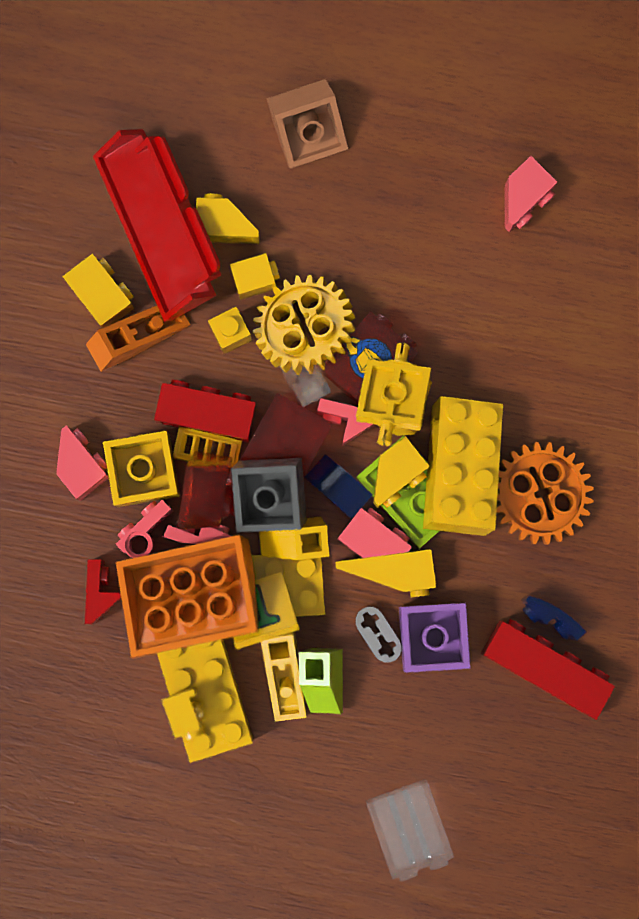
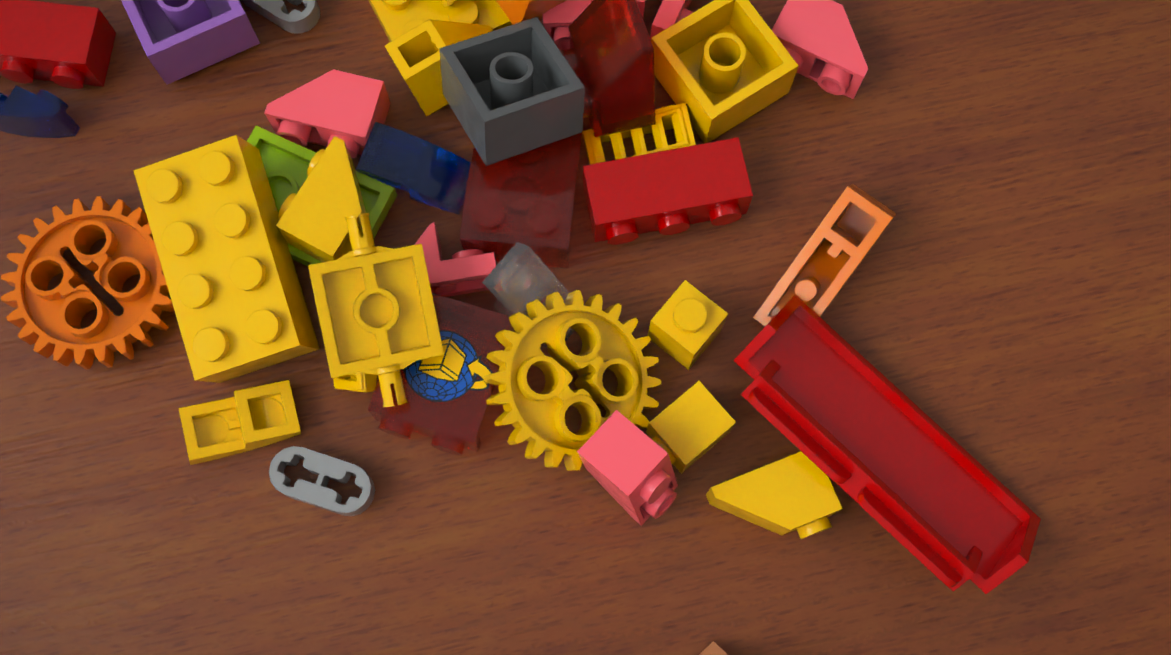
camera: 160 degrees right, 10 degrees down
(98, 291) = (918, 301): yellow brick -> none
(295, 262) = (630, 468): none -> coral slope
(398, 571) = (266, 73): yellow slope -> none
(462, 327) = (326, 468): none -> light grey beam
(489, 383) = (239, 423): none -> yellow slope

